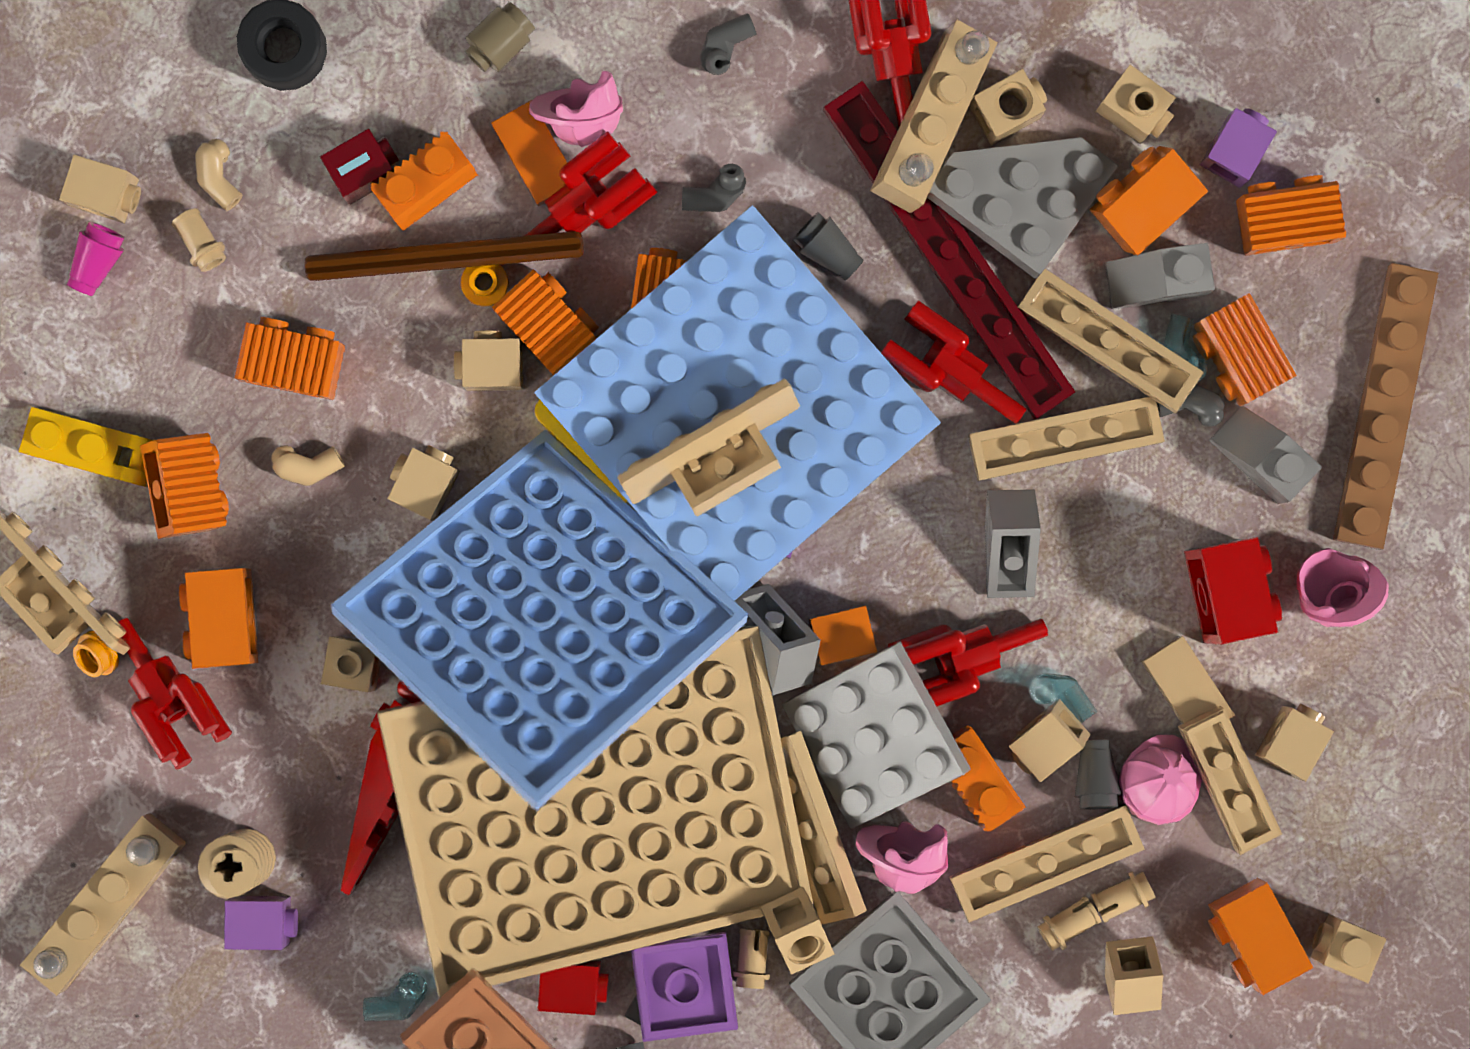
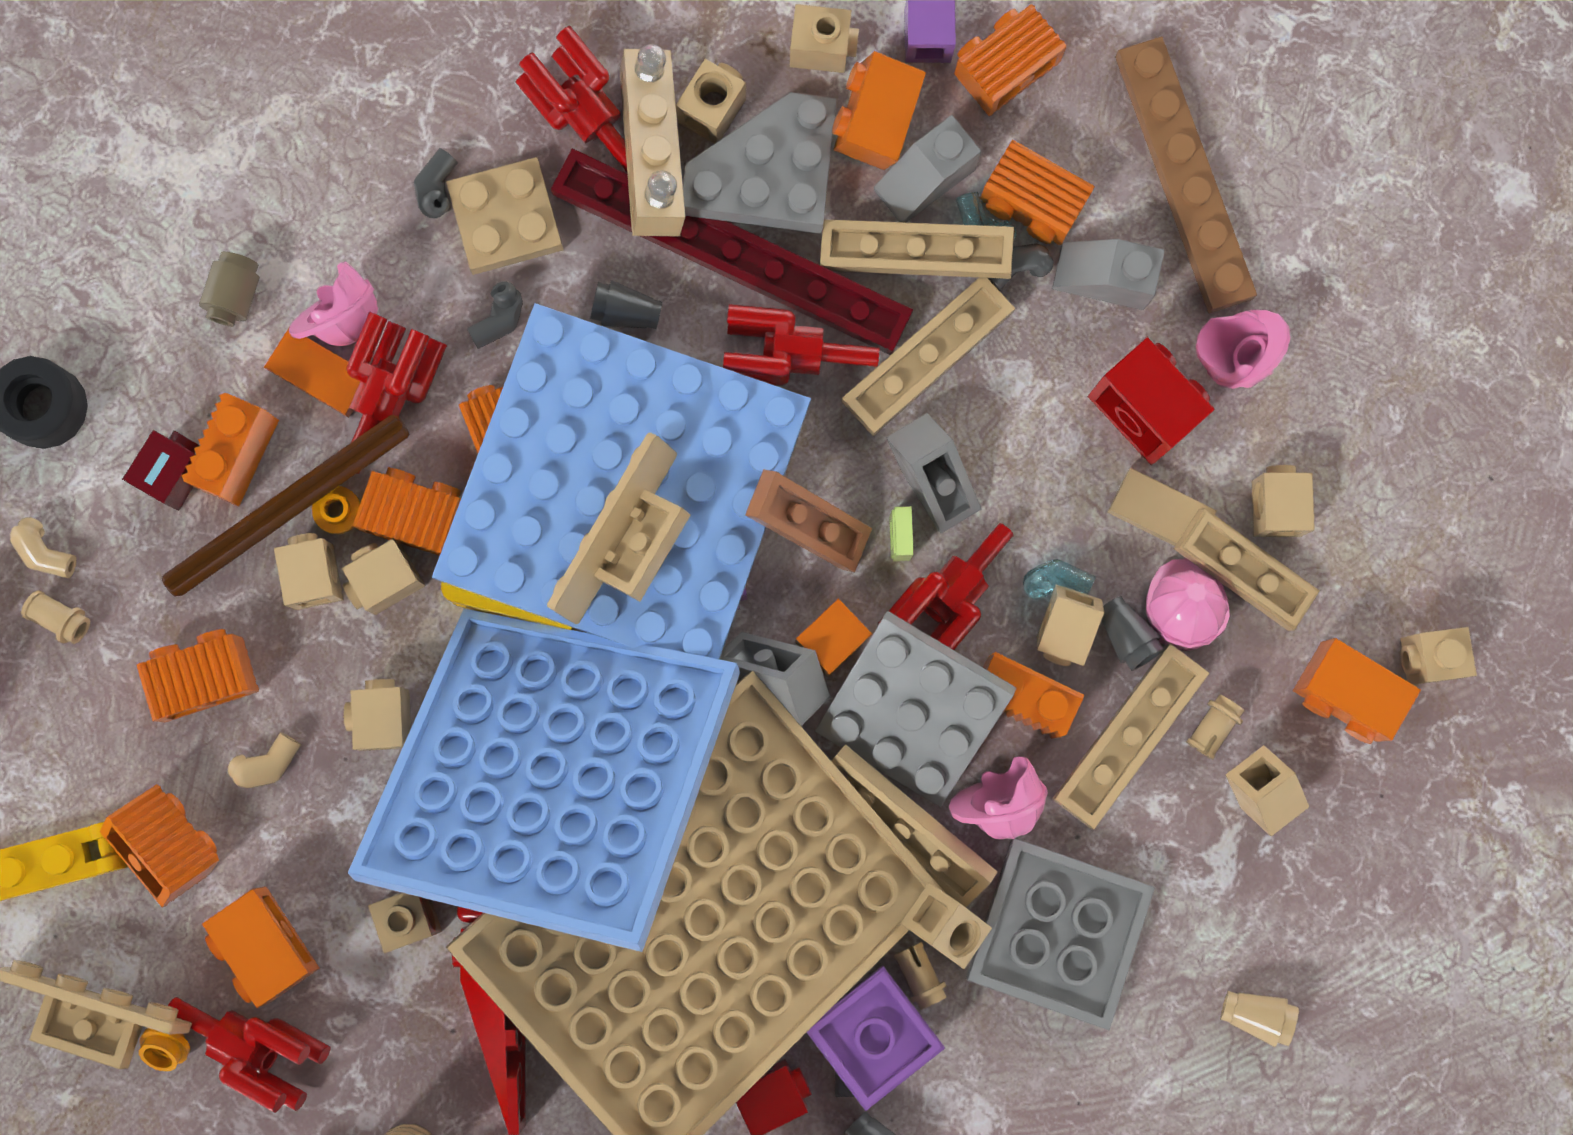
camera: 30 degrees left, 5 degrees down
(431, 323) = (308, 572): none -> tan brick
(770, 105) = (504, 216): none -> tan plate
(878, 526) = (808, 520): none -> nougat plate
(952, 580) = (901, 534): none -> yellowish green tile
(1068, 924) = (1182, 779): tan pin -> none

